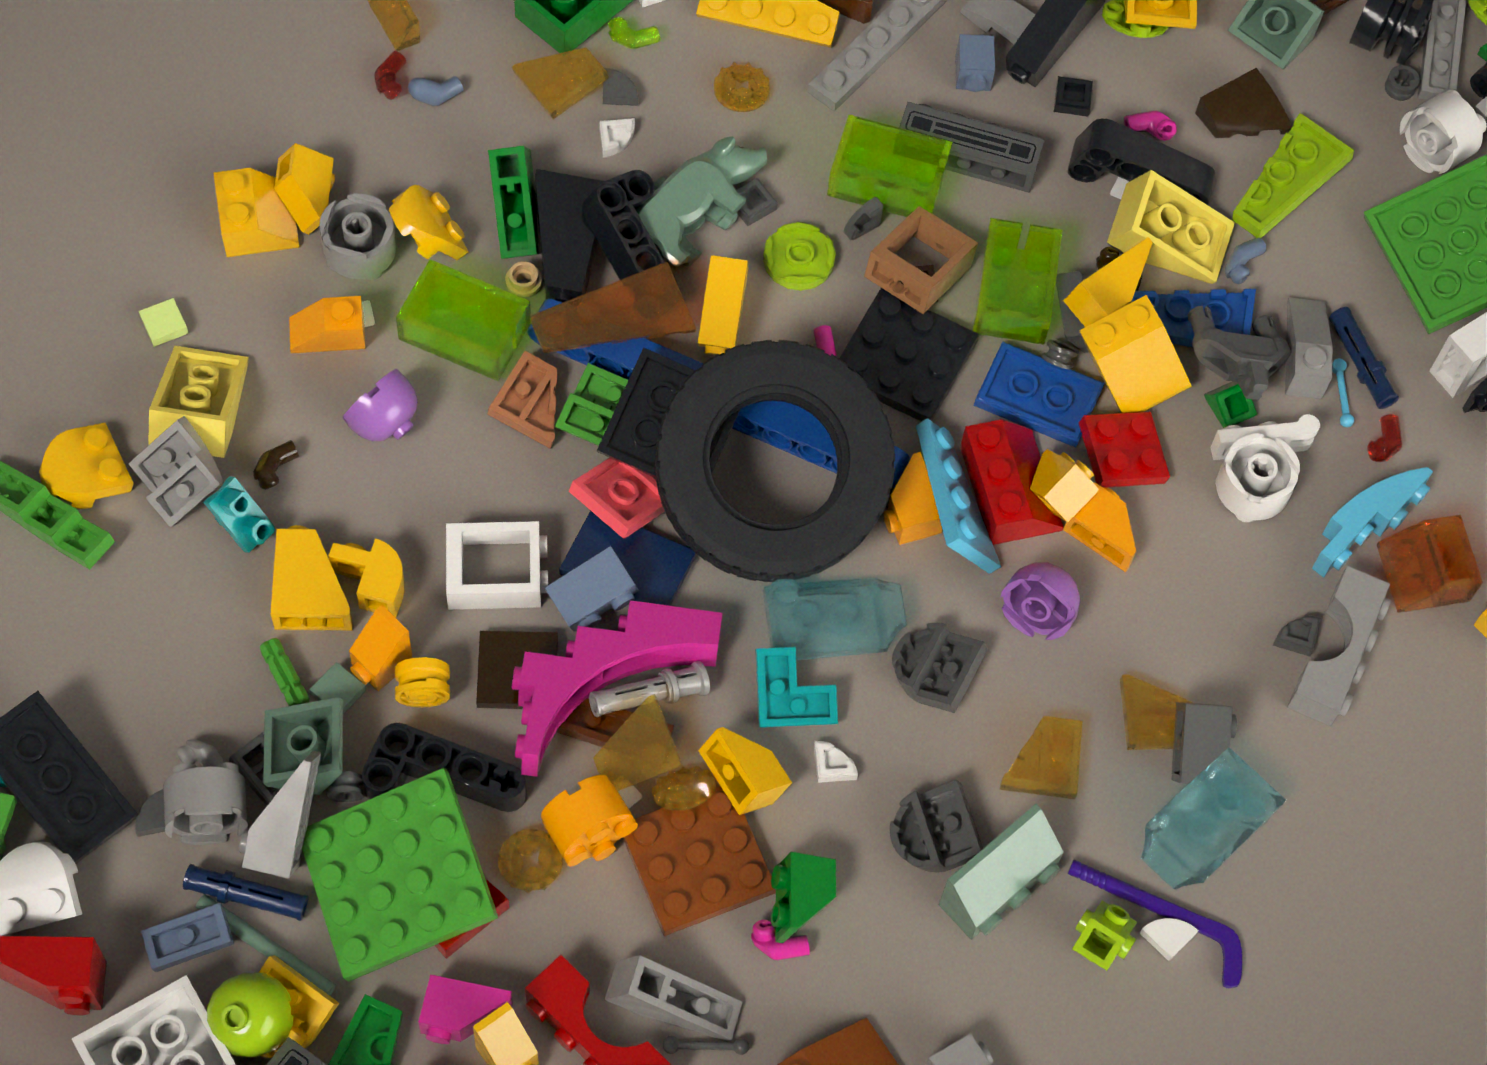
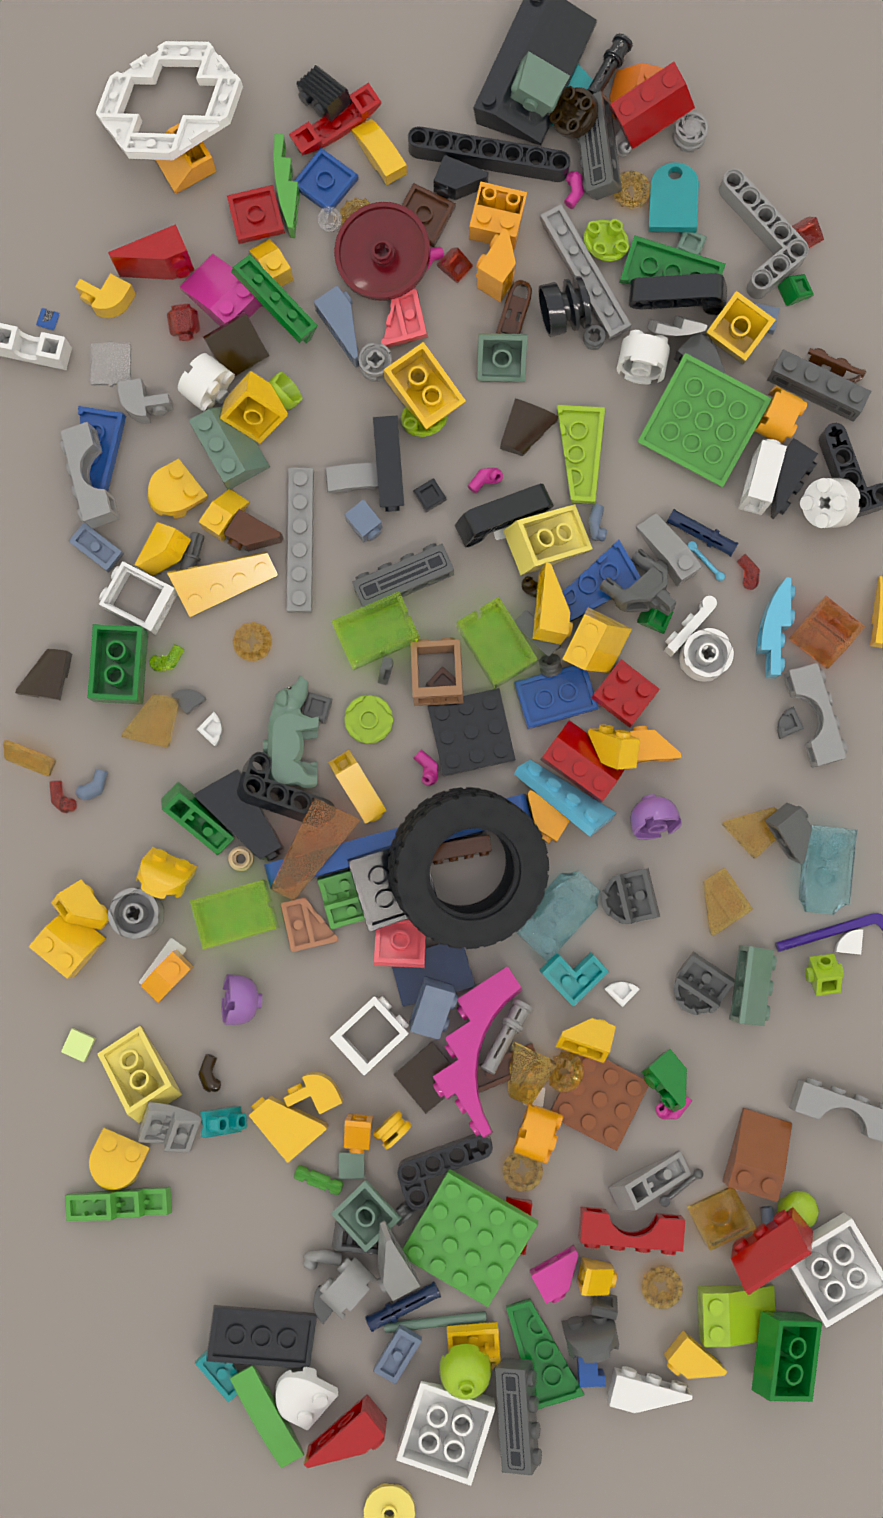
camera: 35 degrees left, 20 degrees up
(780, 455) = (462, 848): none -> reddish brown piece

